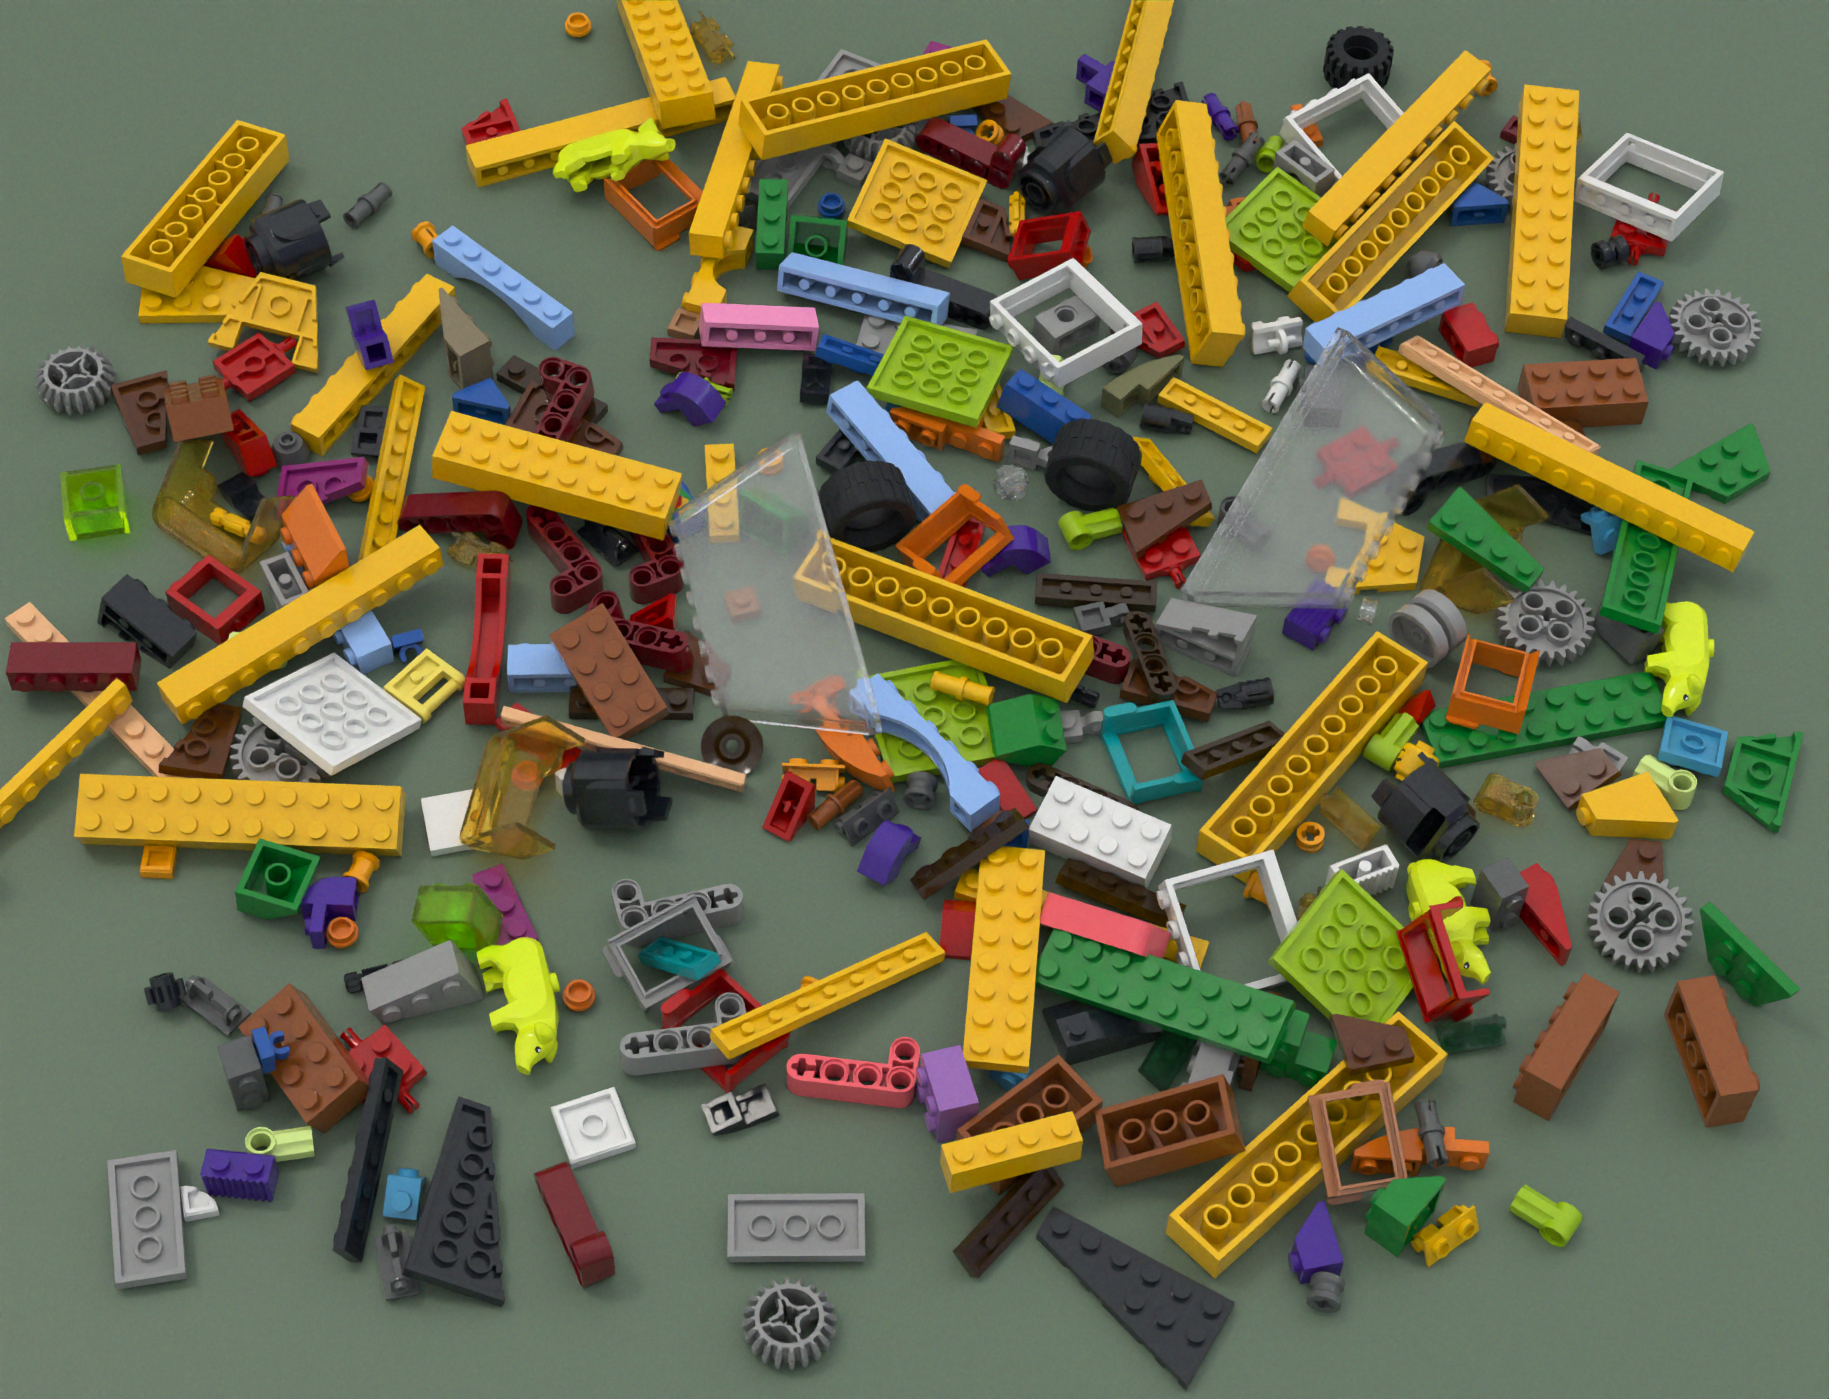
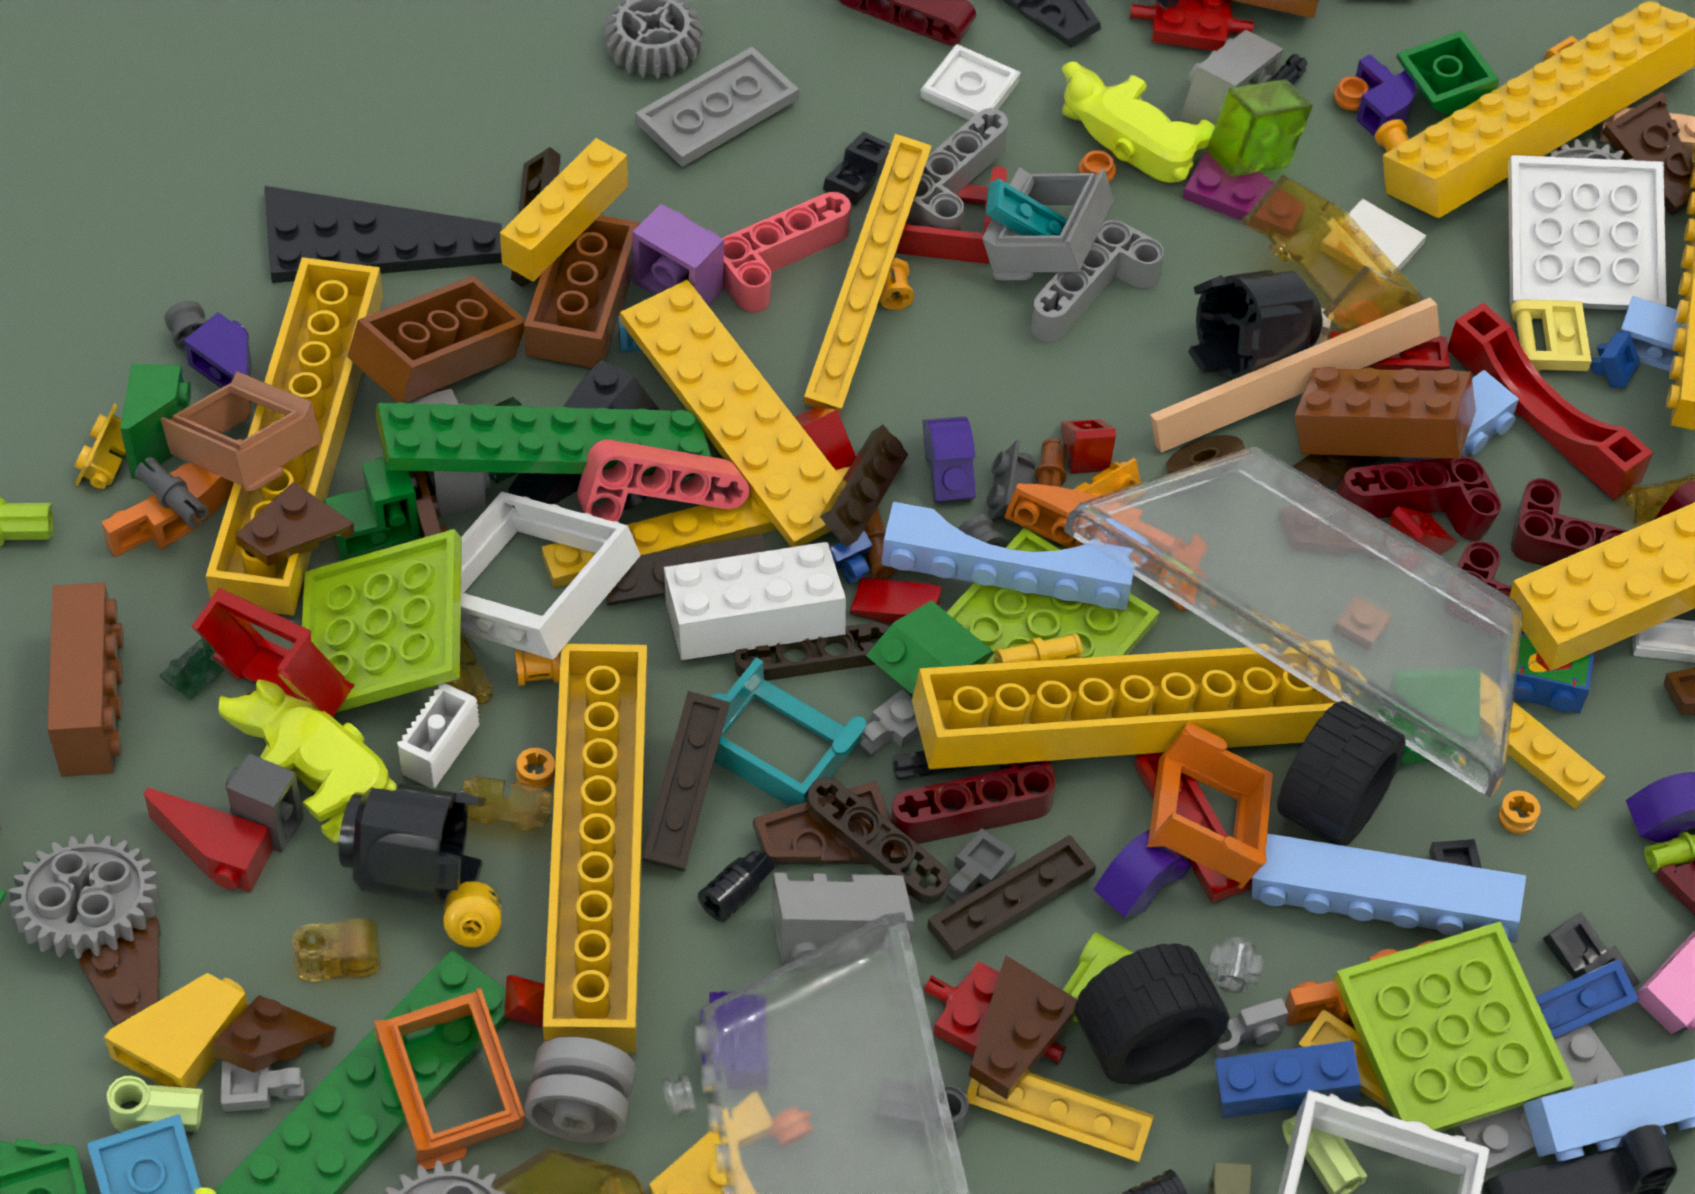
camera: 140 degrees right, 0 degrees up
(1385, 747) = (523, 927): lime piece -> none

